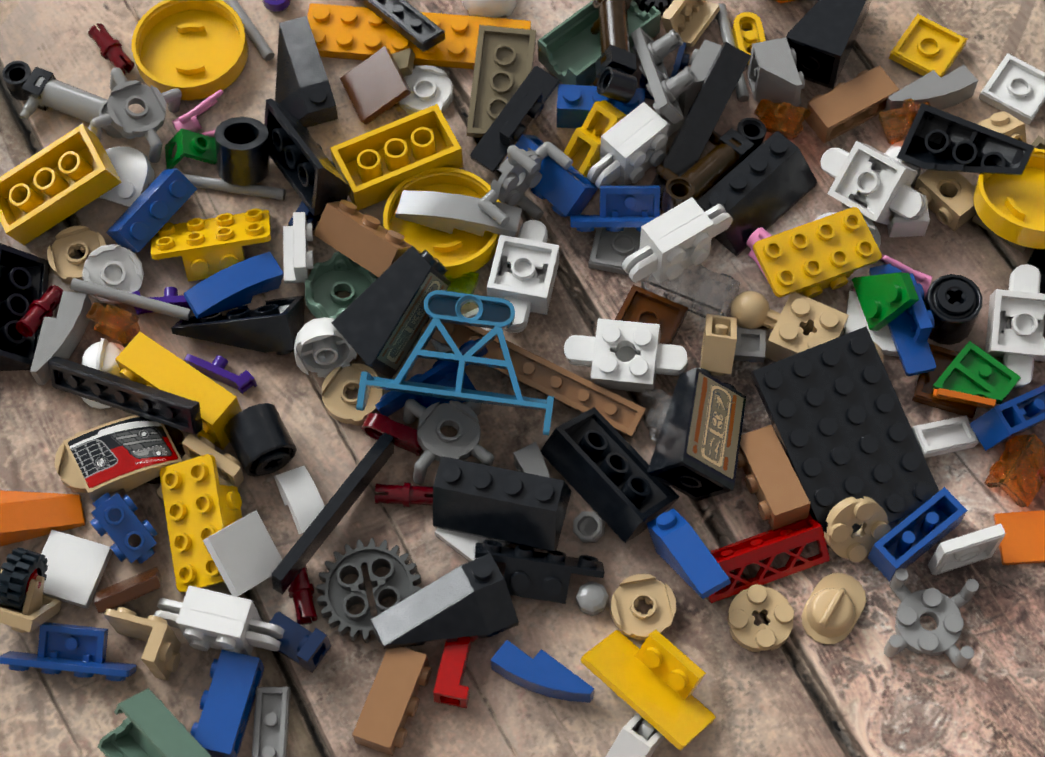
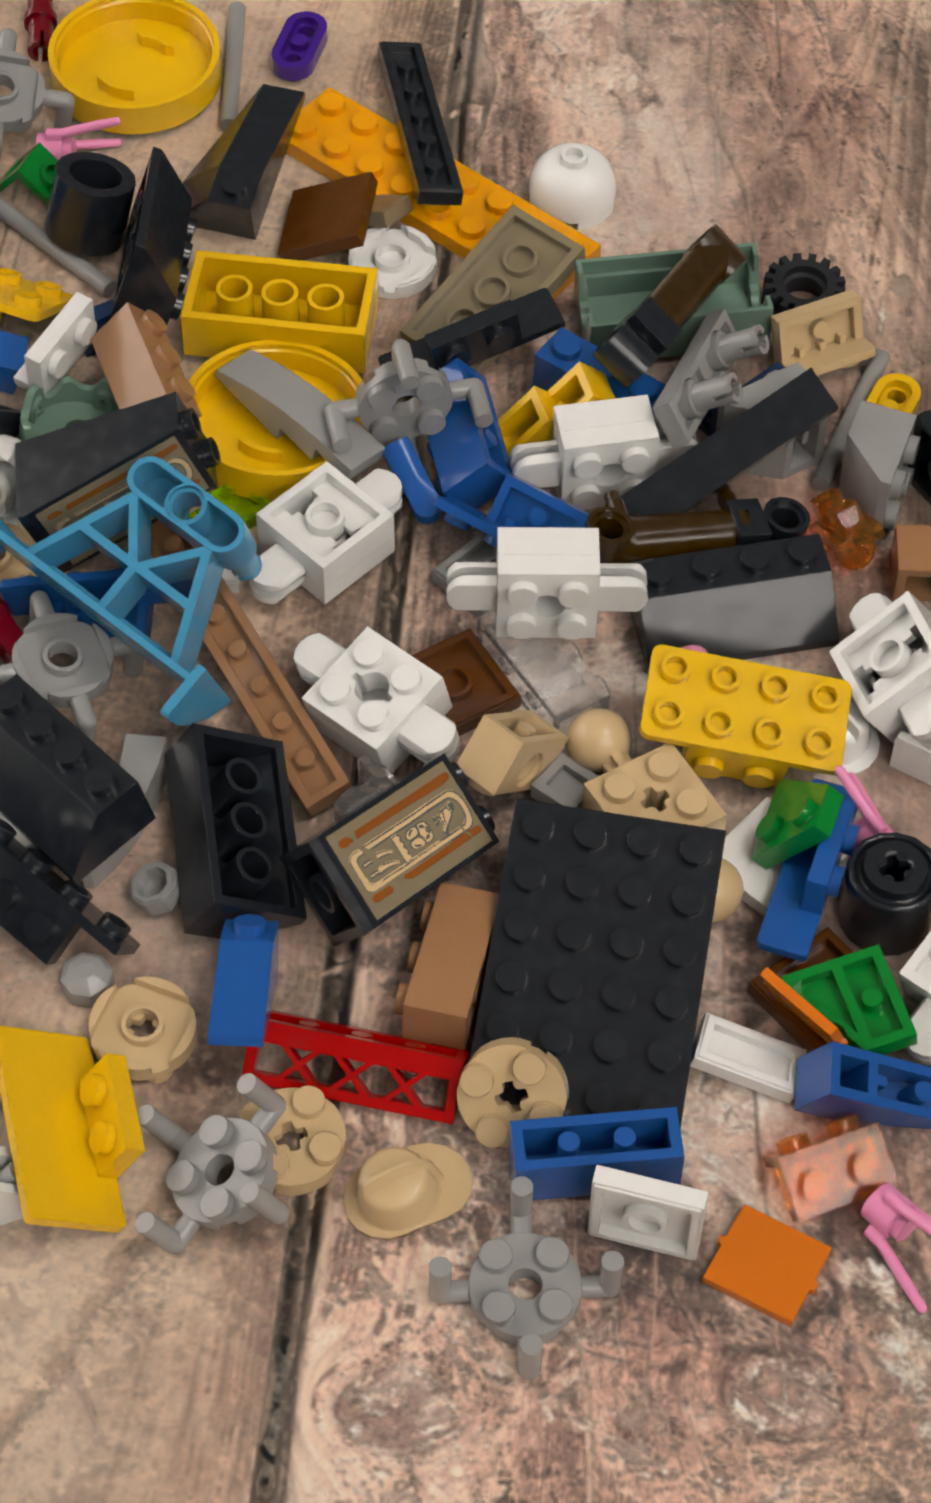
camera: 30 degrees right, 10 degrees down
(554, 223) = (414, 479): none -> blue bar
(728, 662) = (202, 1158): none -> light grey plate

